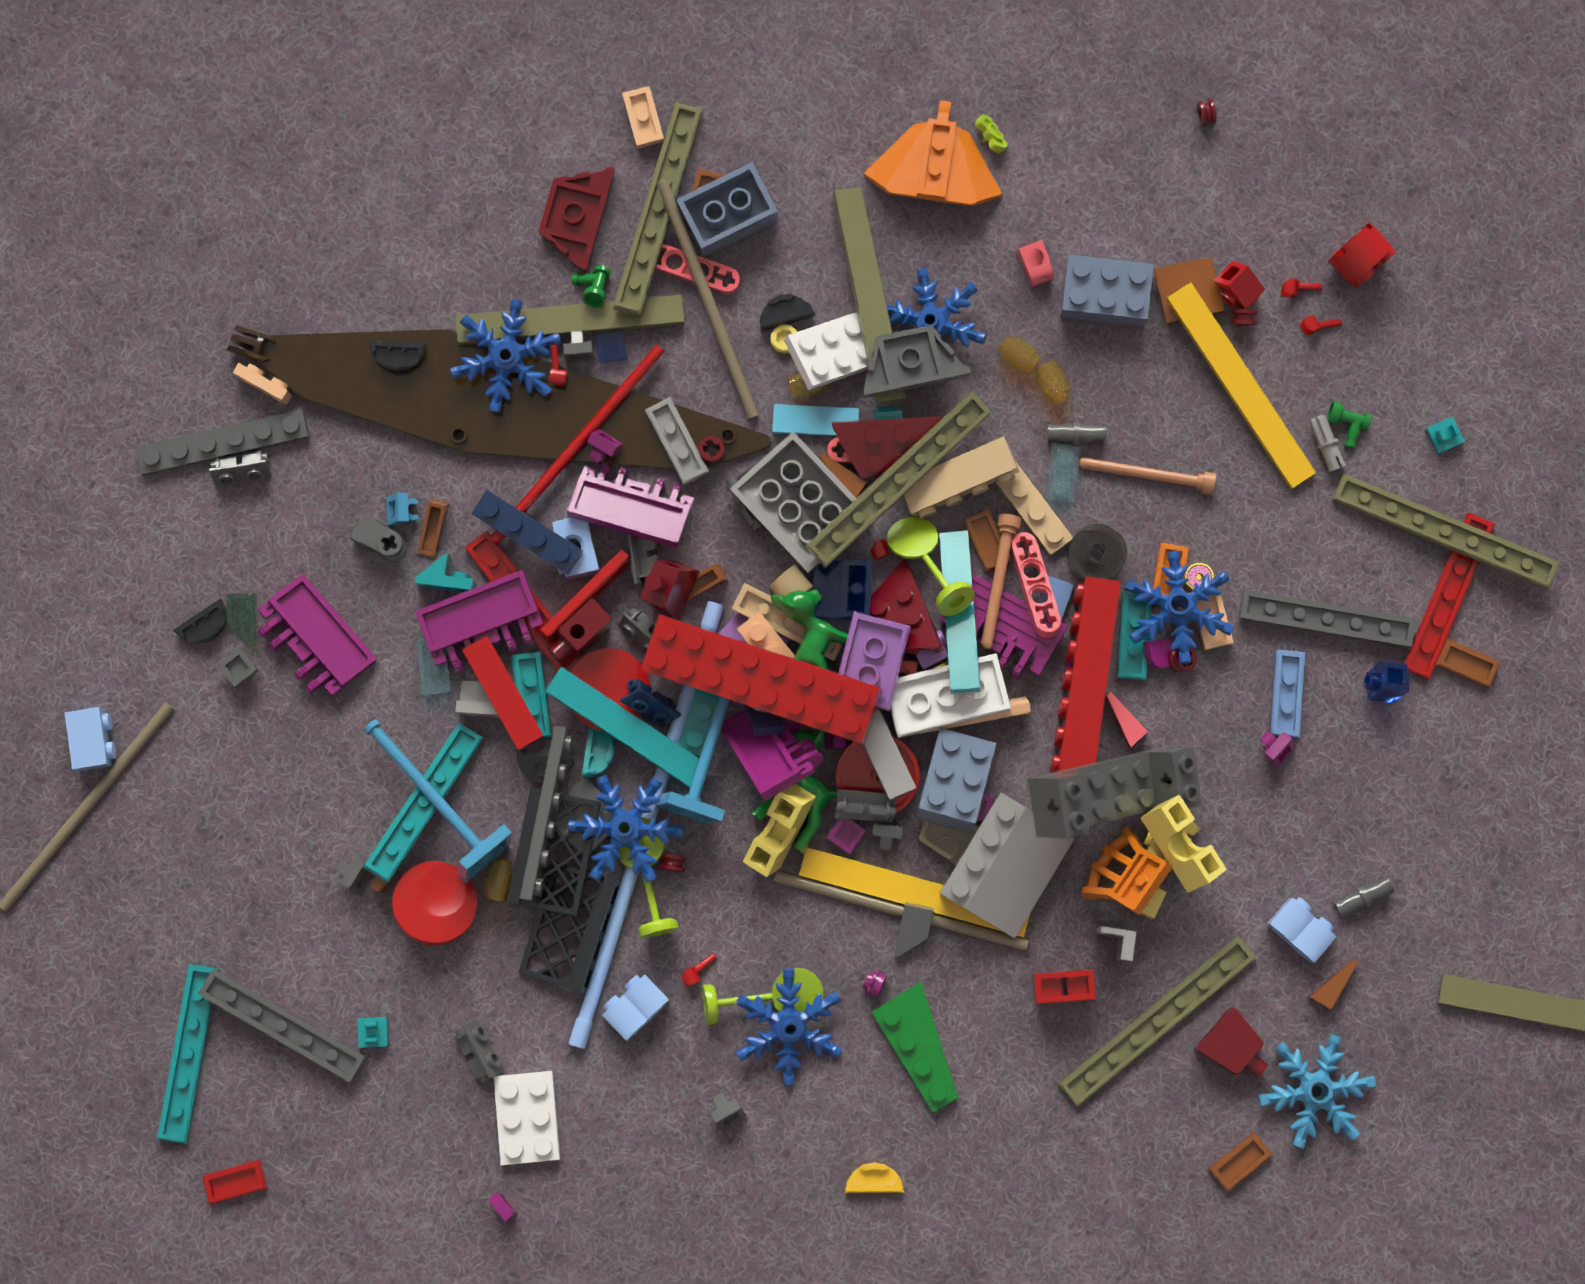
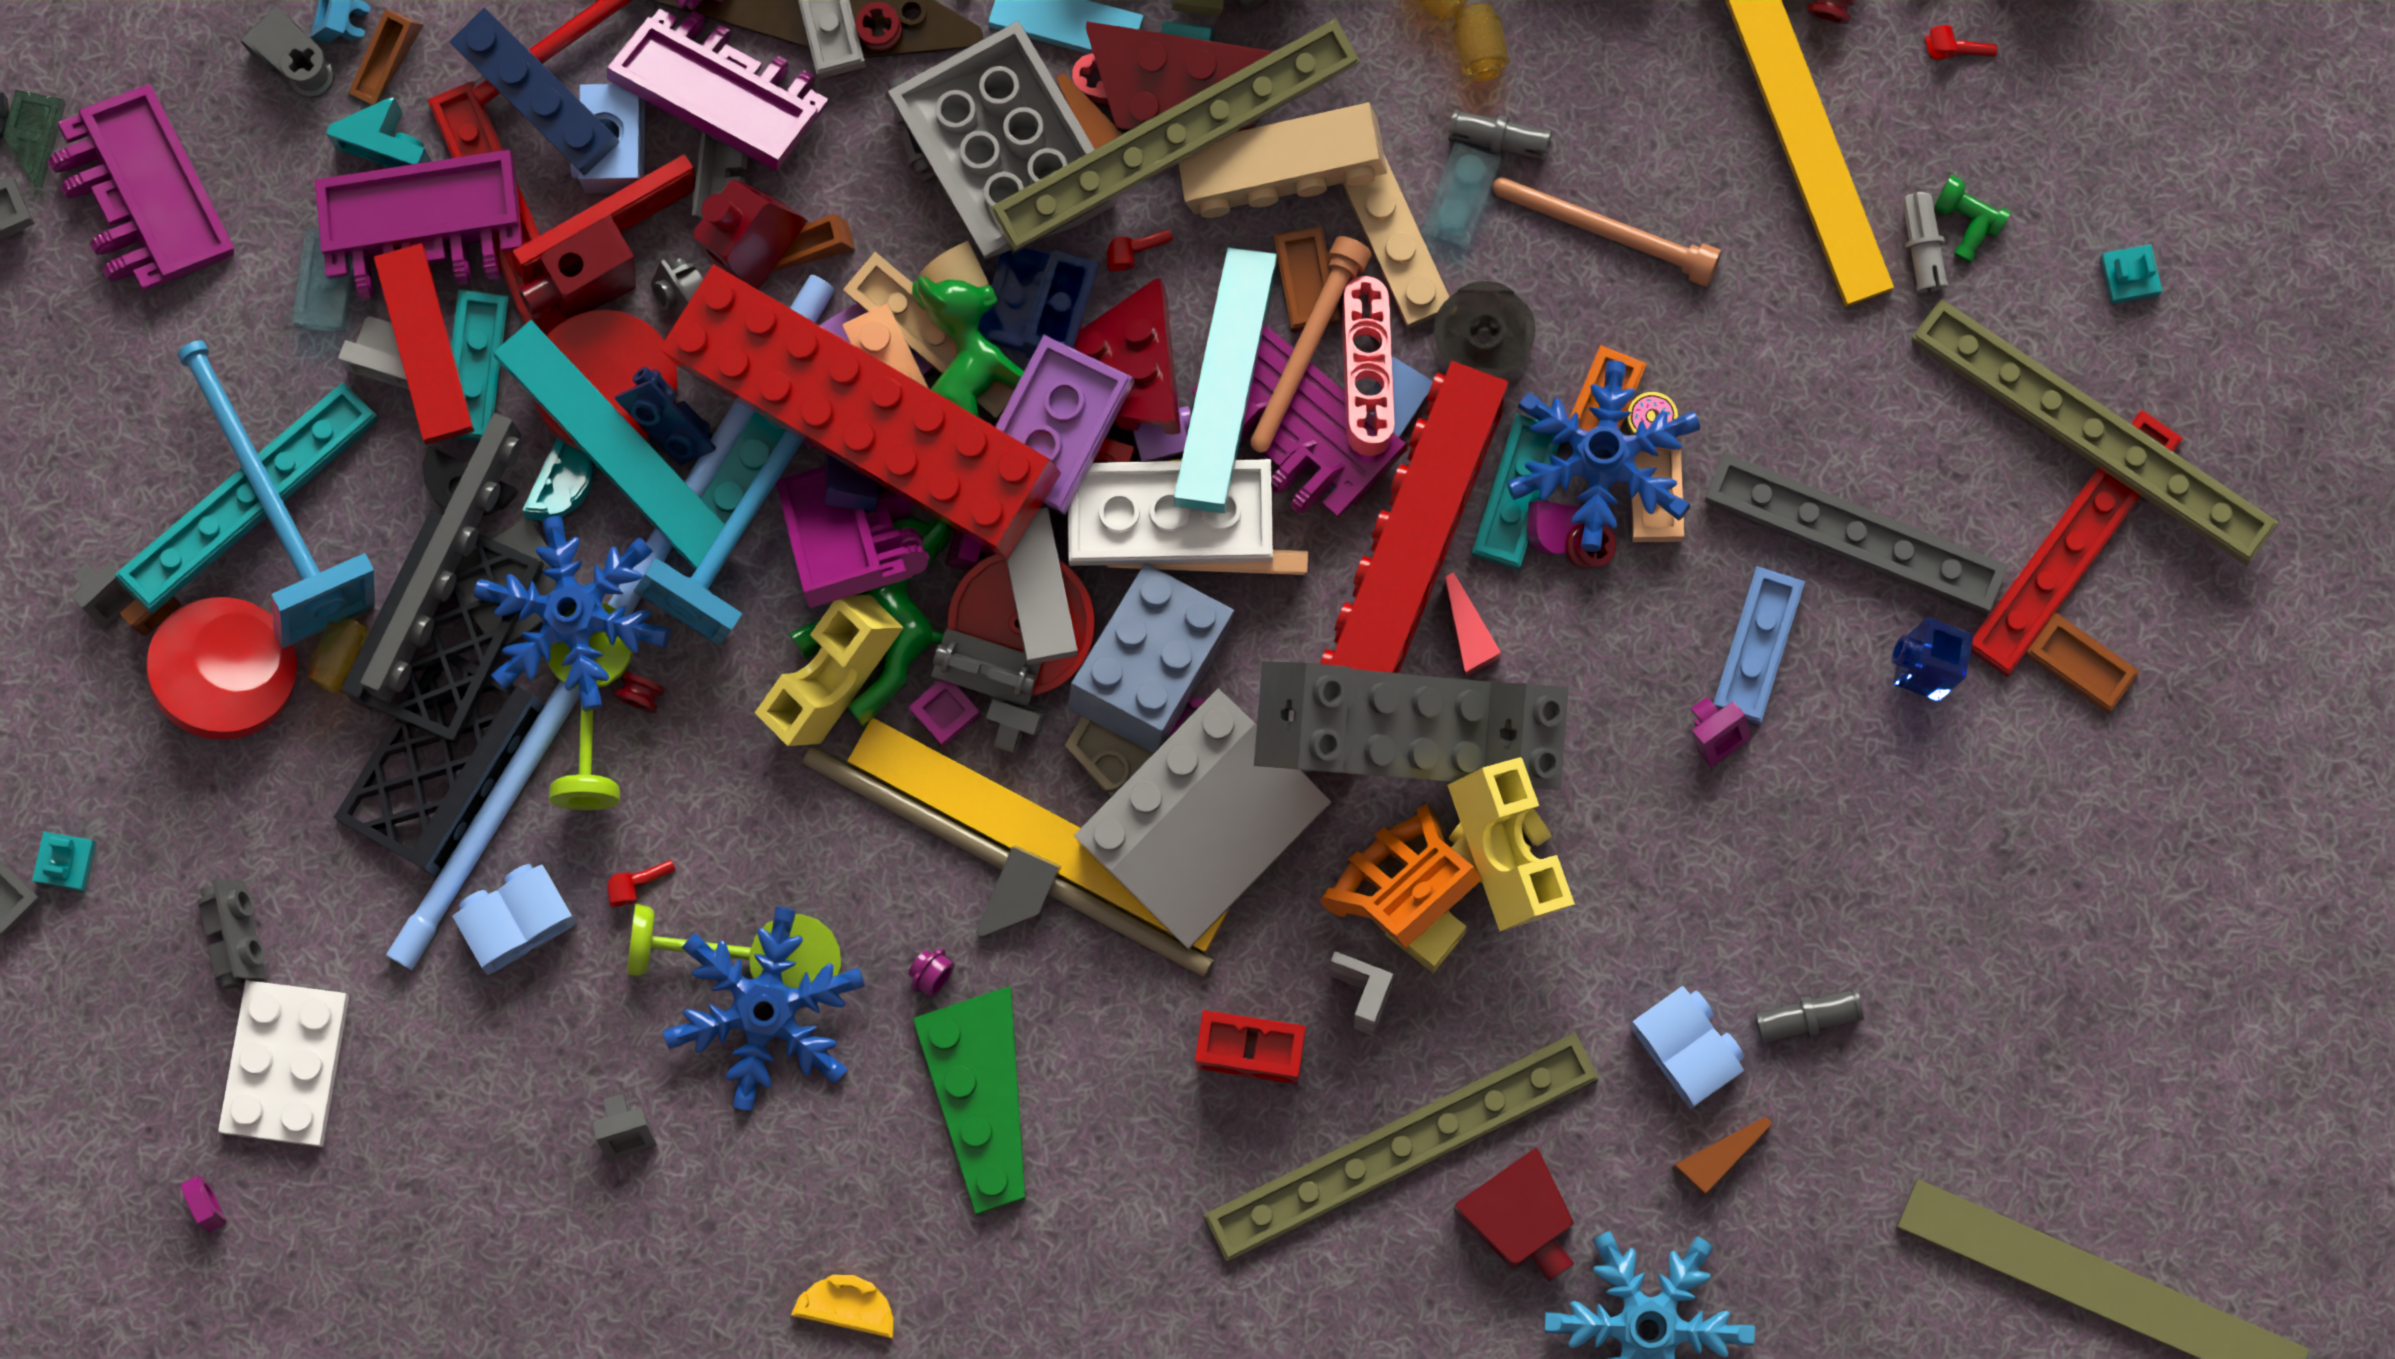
camera: 15 degrees right, 5 degrees down
(916, 539) = (1187, 247): lime piece -> none

